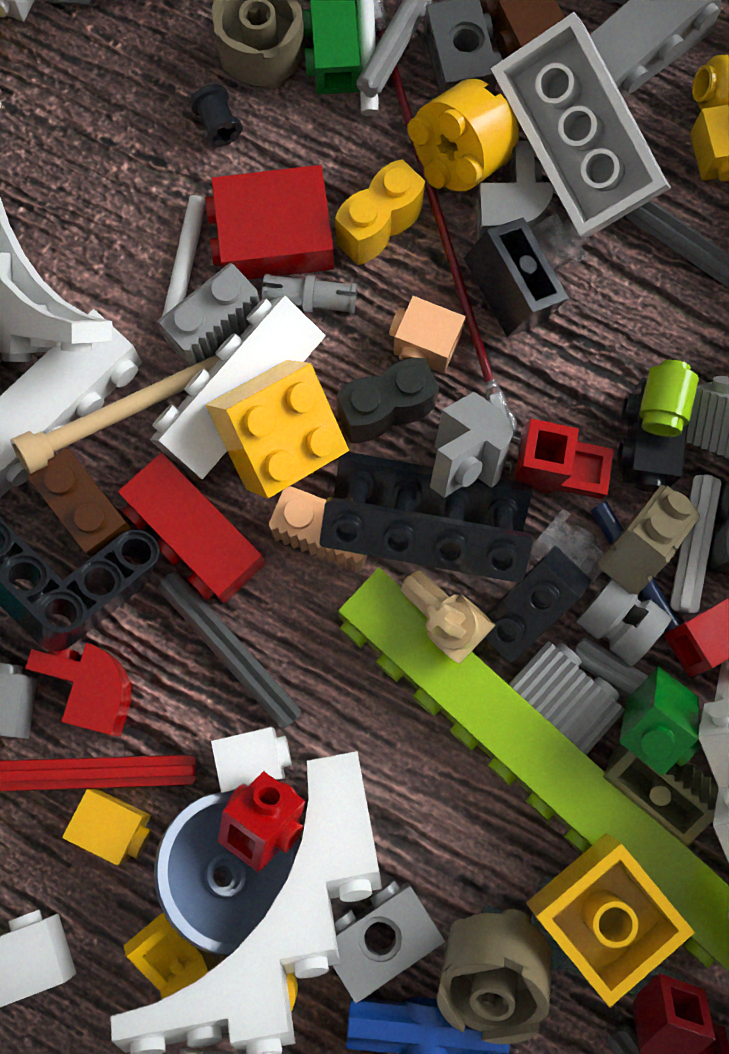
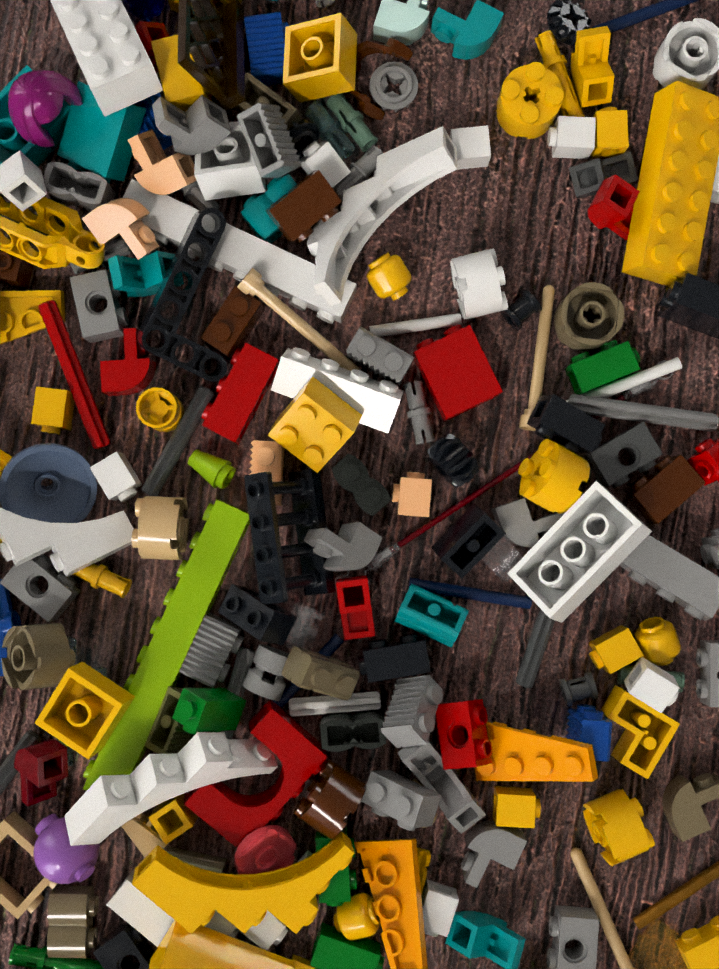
camera: 75 degrees right, 10 degrees up
(100, 269) = (389, 276): none -> yellow head
(159, 148) = (479, 283): none -> white brick
(170, 654) = (159, 409): none -> yellow wheel
(261, 821) = (79, 496): red brick -> none
(287, 610) = (213, 469): none -> lime cone
(356, 706) = (161, 527): none -> tan brick
(370, 148) = (540, 355): none -> tan piece
(379, 212) = (494, 443): yellow brick -> none
(392, 97) = (565, 424): none -> black brick
(394, 261) = (453, 460): none -> black gear
(403, 831) = (101, 577): none -> yellow pin
(452, 621) = (226, 571): tan axle -> none
(587, 309) = (473, 593): none -> dark blue bar
(608, 360) = (431, 615): none -> teal brick
(668, 398) = (411, 660): lime brick -> none

